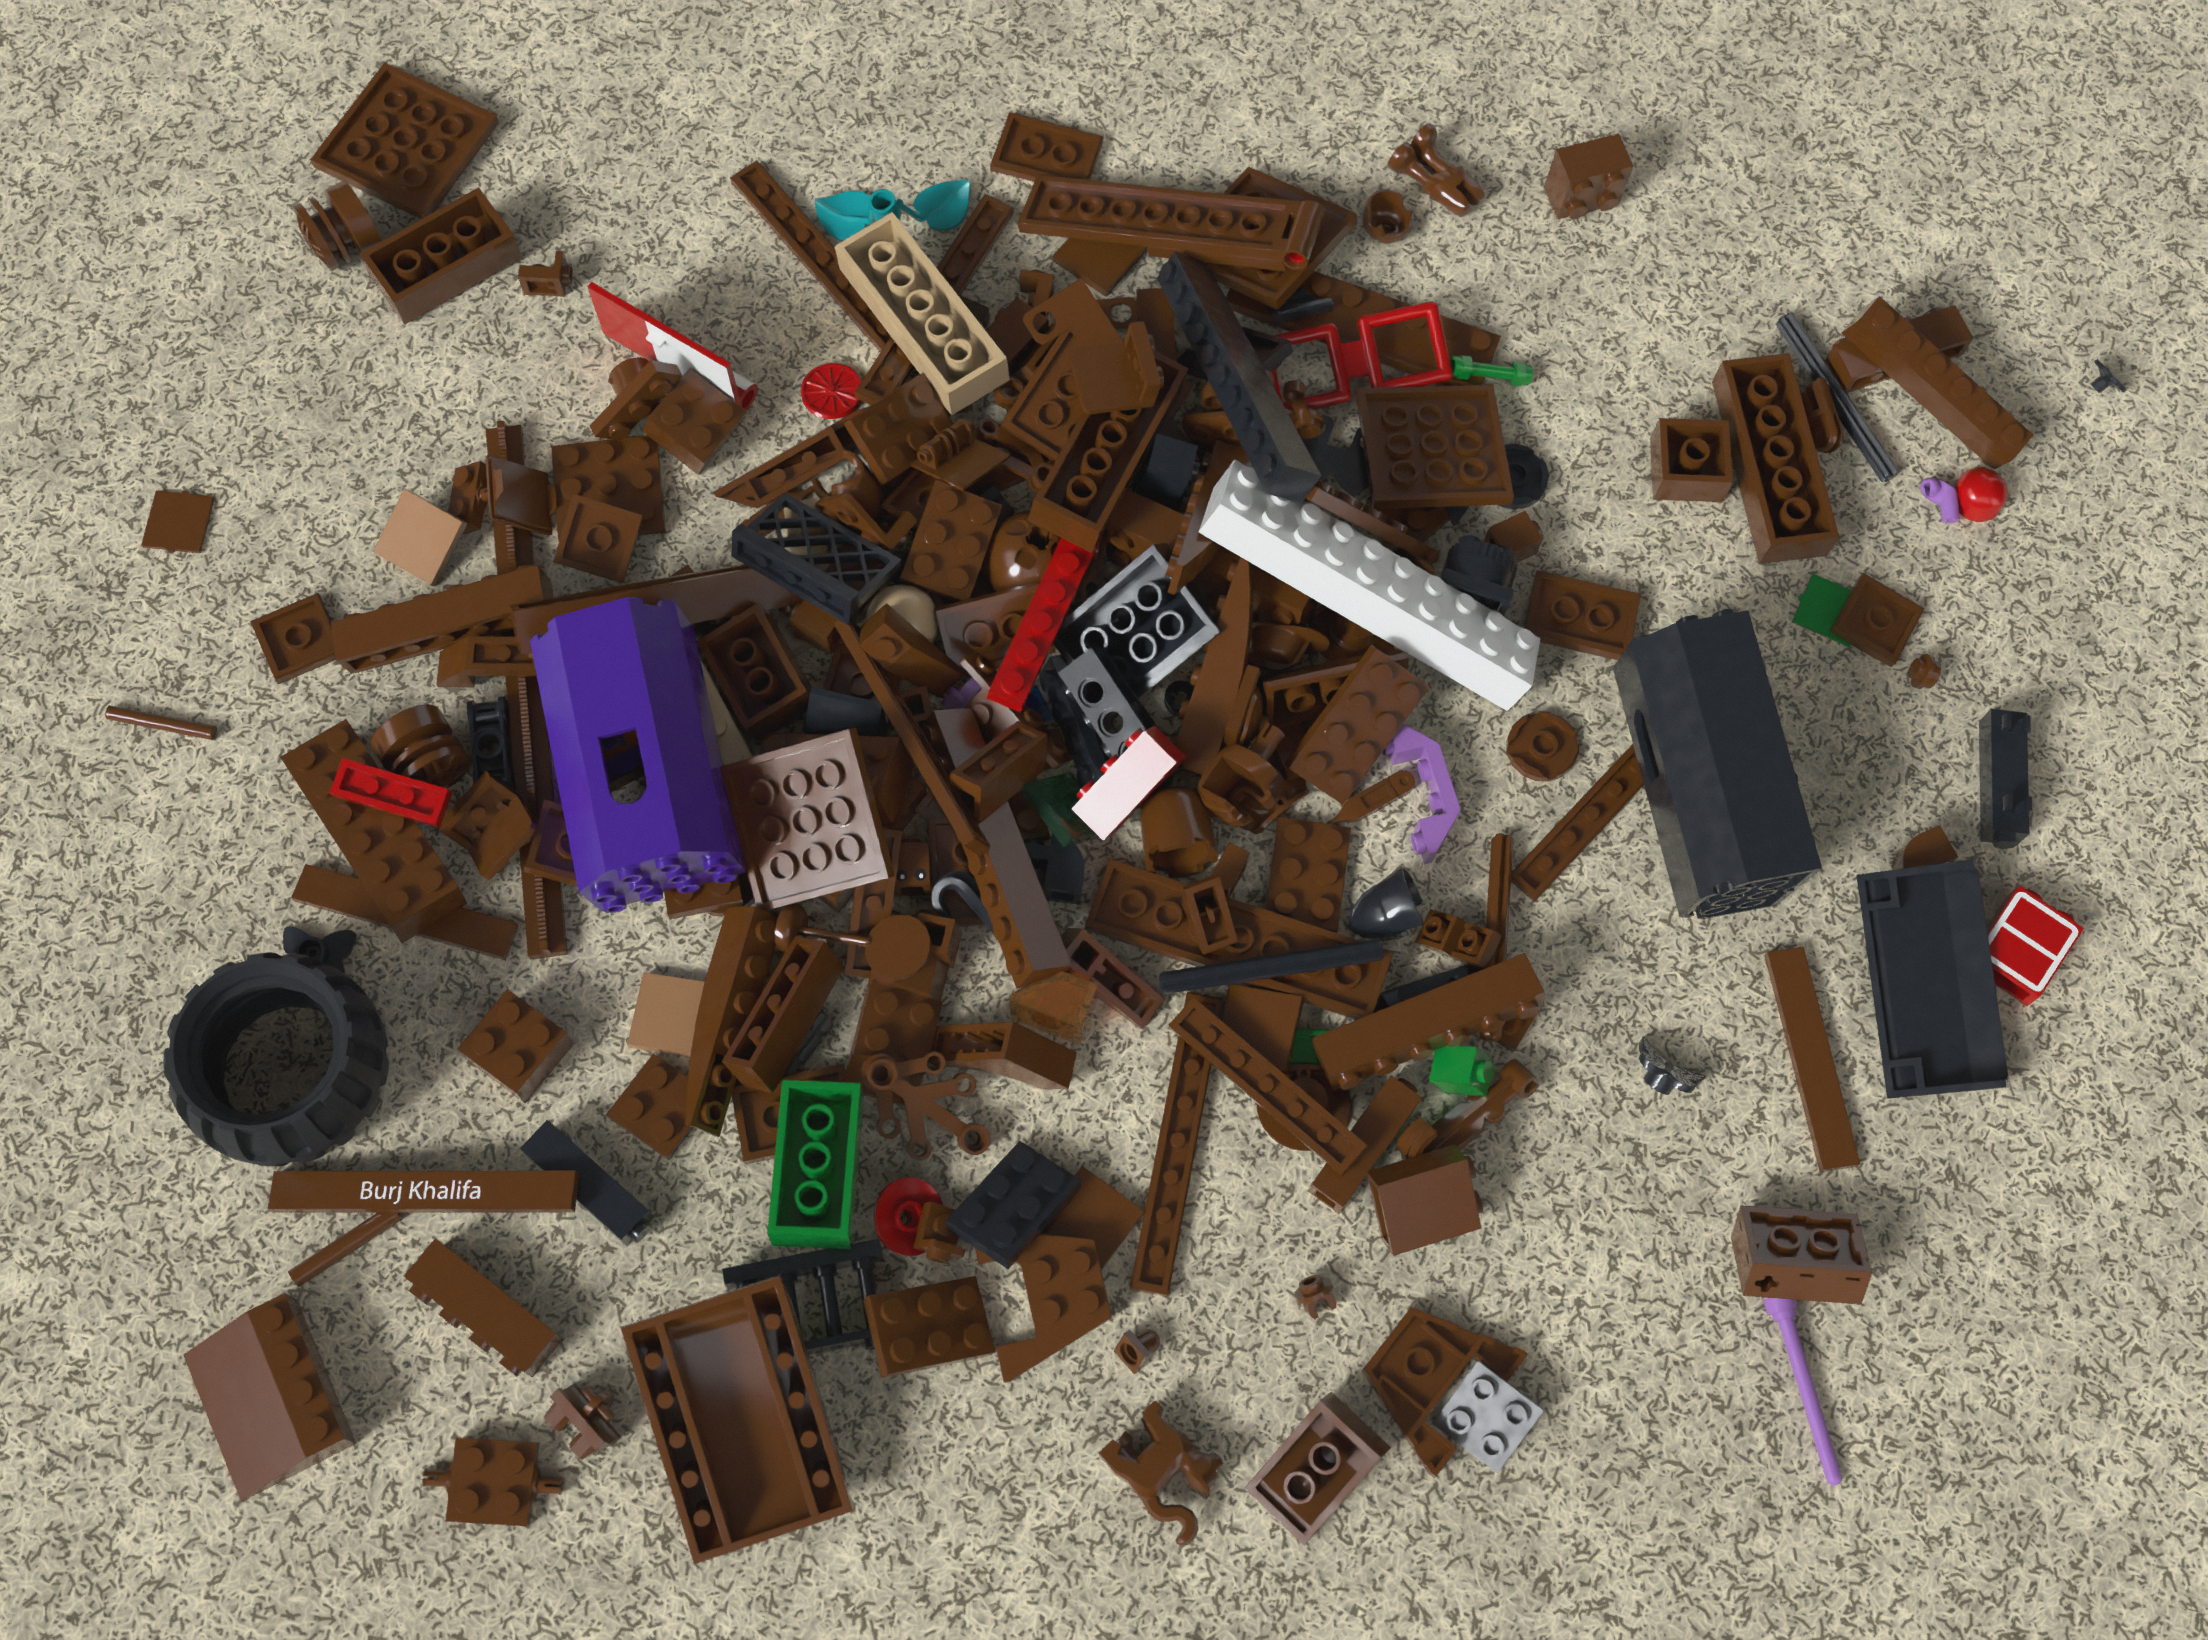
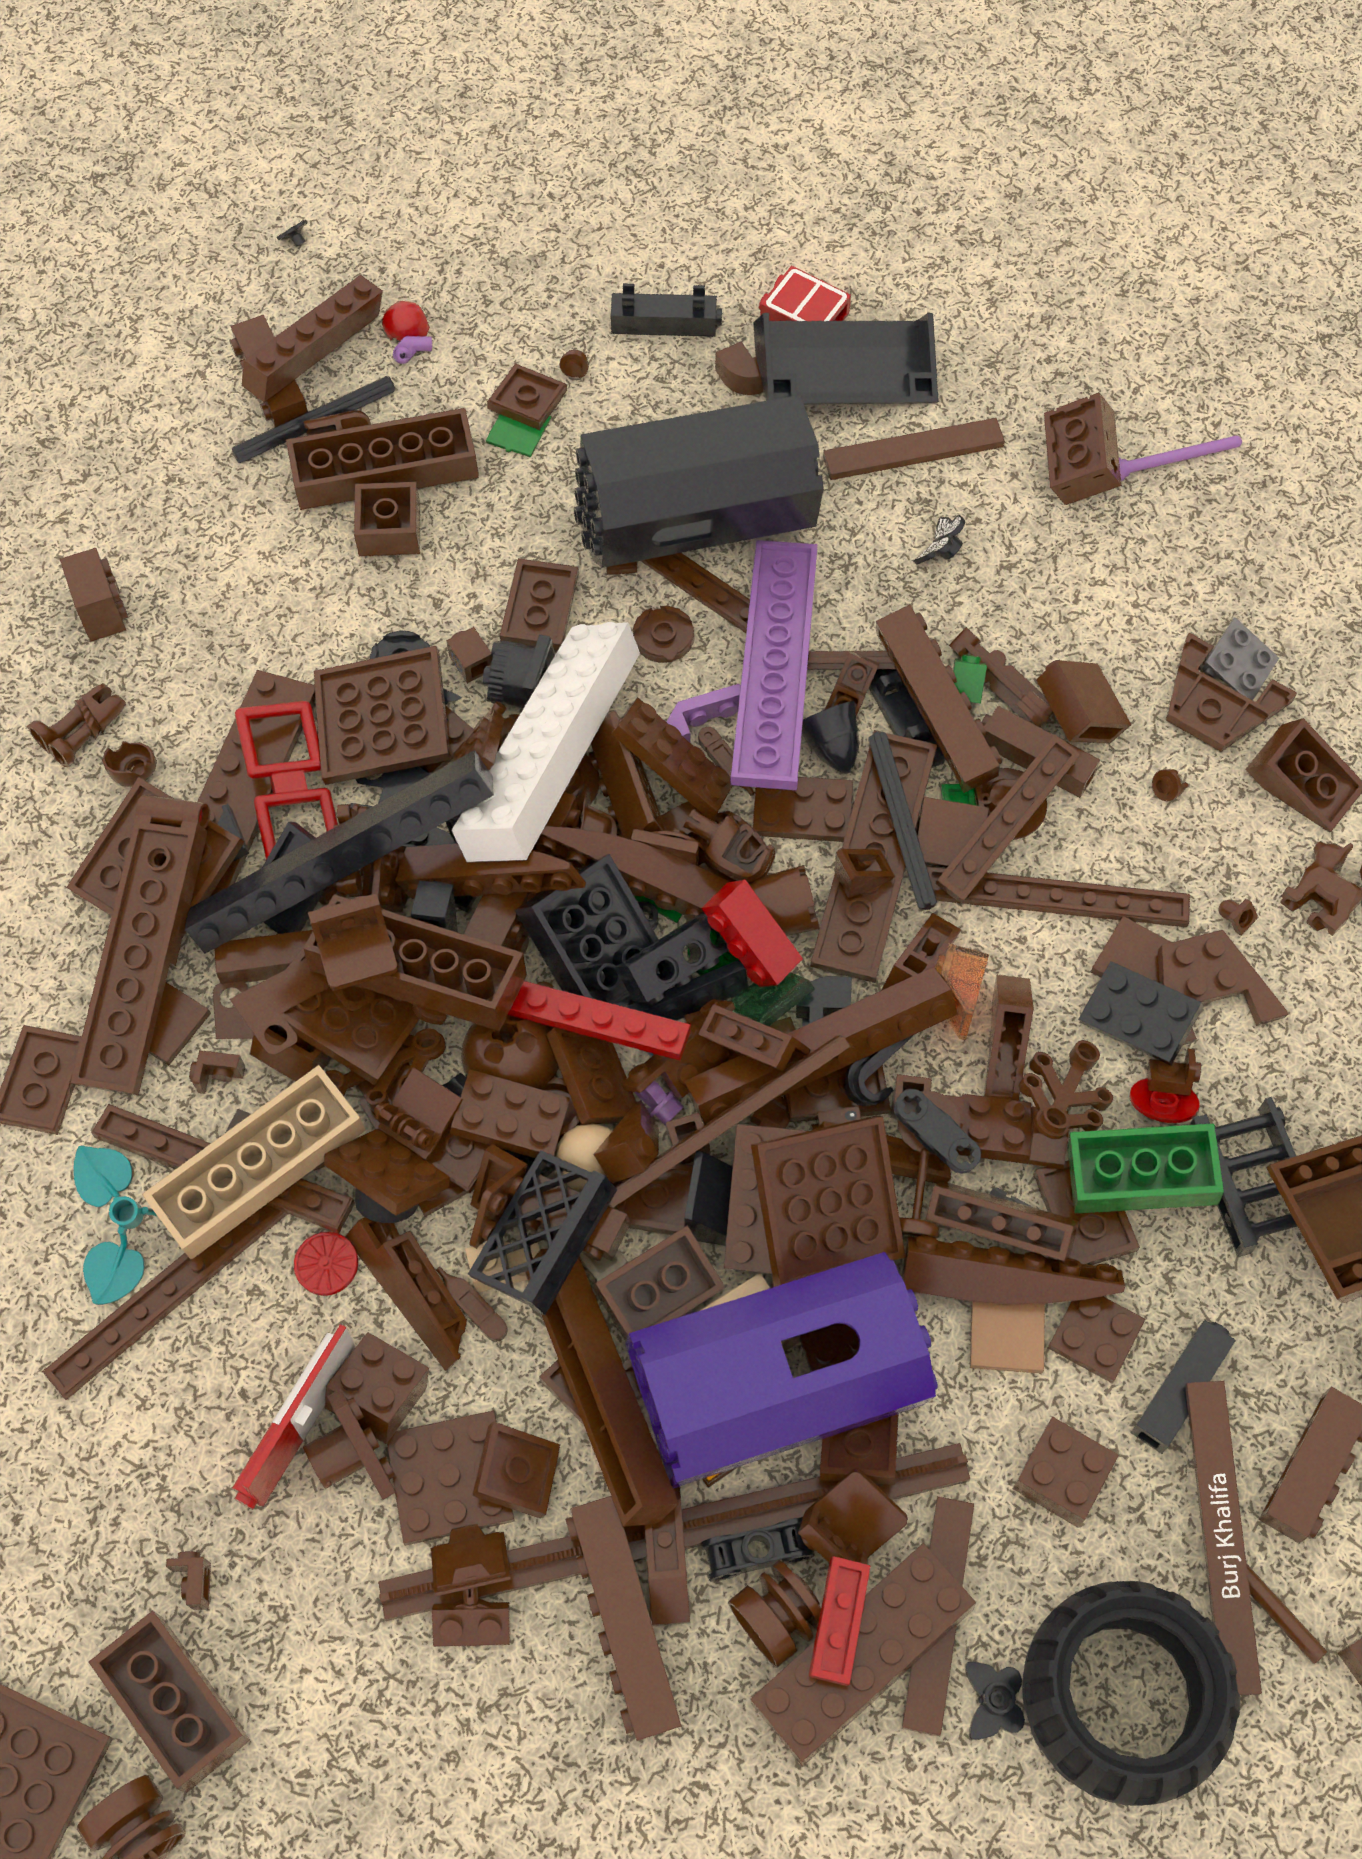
camera: 90 degrees left, 5 degrees down
(296, 638) = (645, 1789): reddish brown tile -> none
(420, 537) = (523, 1666): medium nougat tile -> none
(861, 486) = (449, 1221): reddish brown piece -> none
(879, 946) = (937, 1131): none -> black piece
(928, 1326) = (1259, 1072): reddish brown plate -> none
(1011, 333) = (256, 1082): reddish brown brick -> none
(1231, 867) = (818, 863): reddish brown piece -> none
(1485, 848) = (775, 666): none -> medium lavender plate
(1517, 374) = (297, 657): green bar -> none

